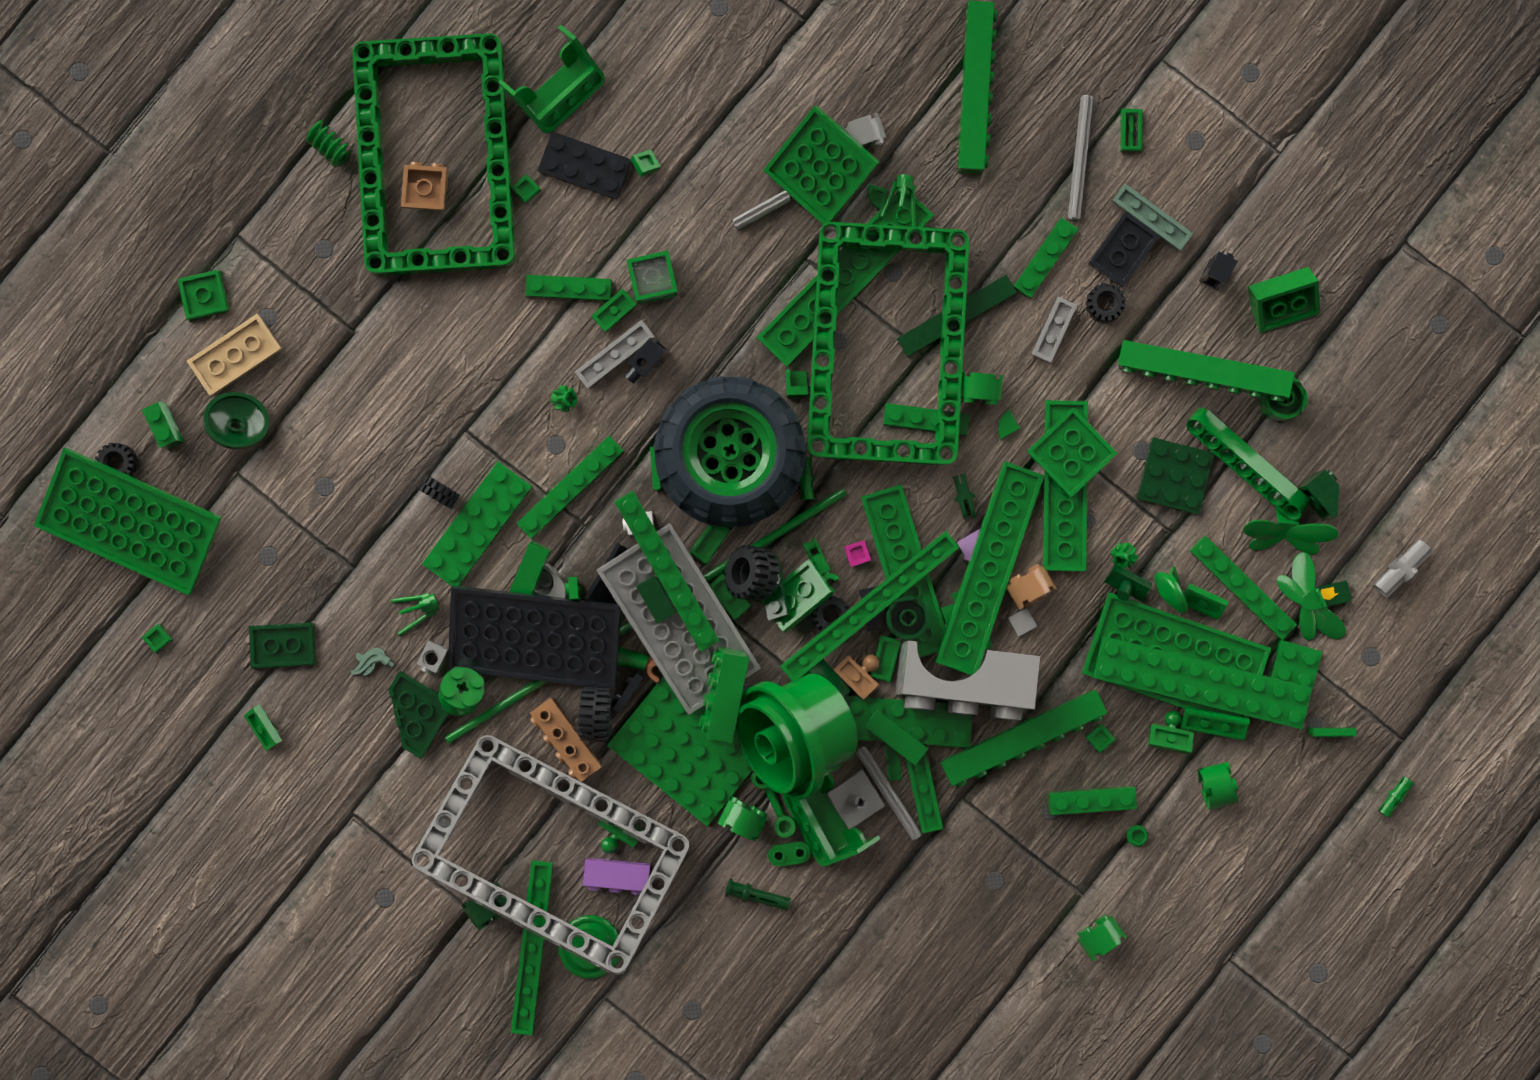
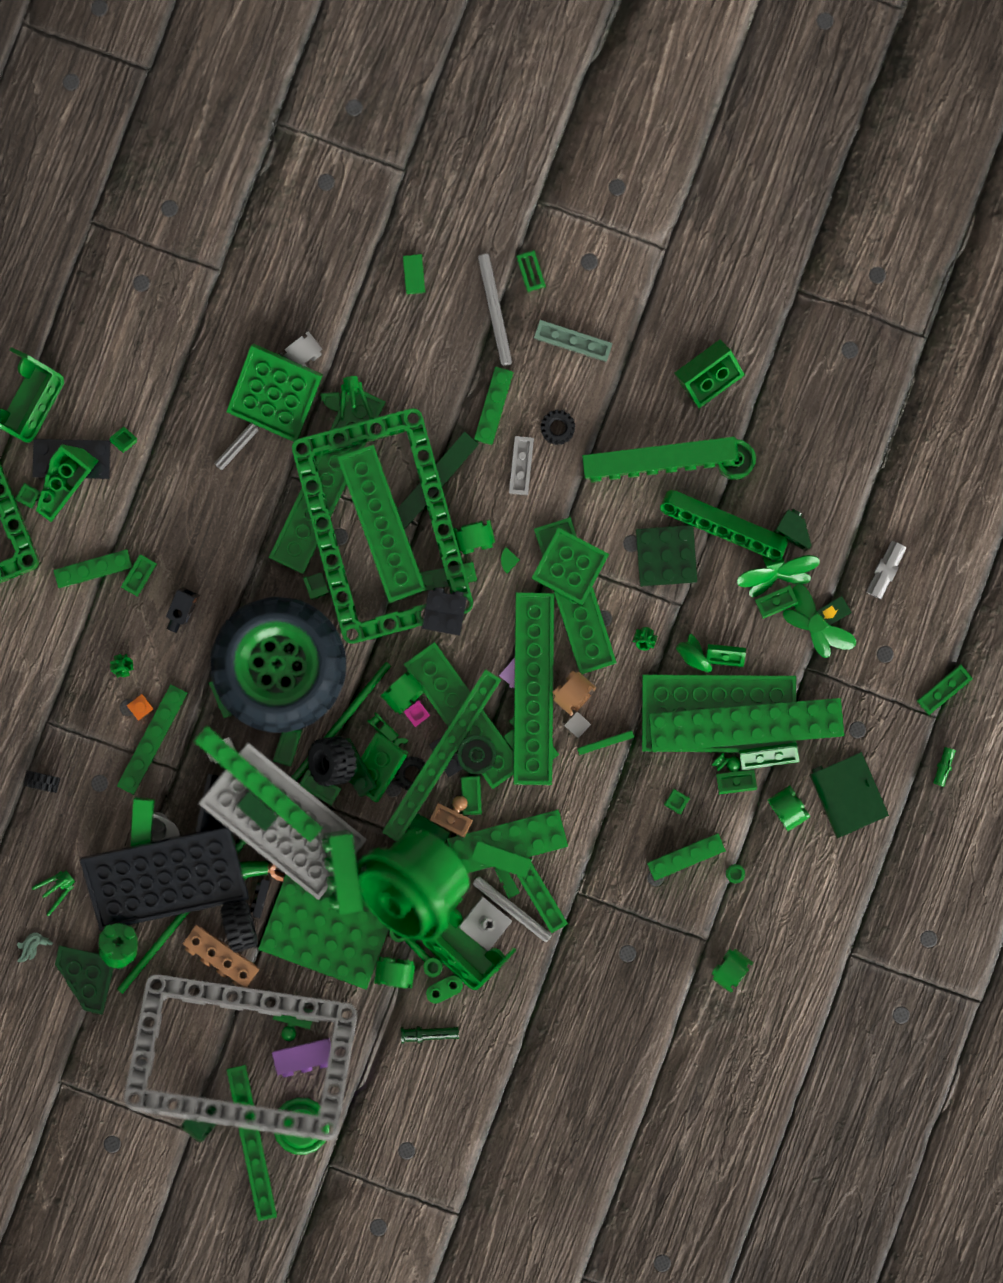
camera: 20 degrees left, 0 degrees up
(440, 651) = (88, 917): light grey brick -> none
(477, 525) = (83, 798): green plate -> none
(569, 449) = (140, 707): none -> orange plate
(573, 177) = (65, 474): none -> green wedge
(574, 589) = (185, 825): green plate -> none
(614, 354) = (152, 613): light grey plate -> none
(652, 277) = (162, 536): piece -> none
(806, 481) = (352, 665): green pin -> none
(851, 525) = (402, 691): none -> green brick
(888, 339) = (381, 523): none -> green plate
(924, 455) = (444, 611): none -> black plate
(964, 494) = (490, 632): dark green arm -> none
(975, 87) = (385, 280): green brick -> none
(1002, 681) = (571, 782): light grey piece -> none
(1007, 92) = (414, 274): none -> green tile
(1023, 737) = (610, 823): green brick -> none
(1070, 651) = (605, 742): none -> green tile
(1123, 249) = (558, 376): black plate -> none
(1127, 583) = (656, 662): dark green tile -> none
(1160, 712) = (720, 762): none -> green bush
(1218, 270) = (643, 368): black brick -> none
(1243, 587) = (756, 632): green plate -> none
(1275, 563) = (776, 602): none -> green plate
(1284, 793) = (848, 795): none -> dark green door
(1296, 664) = (822, 682): green plate -> none
(1332, 732) = (871, 729): green tile -> none
(1422, 715) = (944, 689): none -> green tile

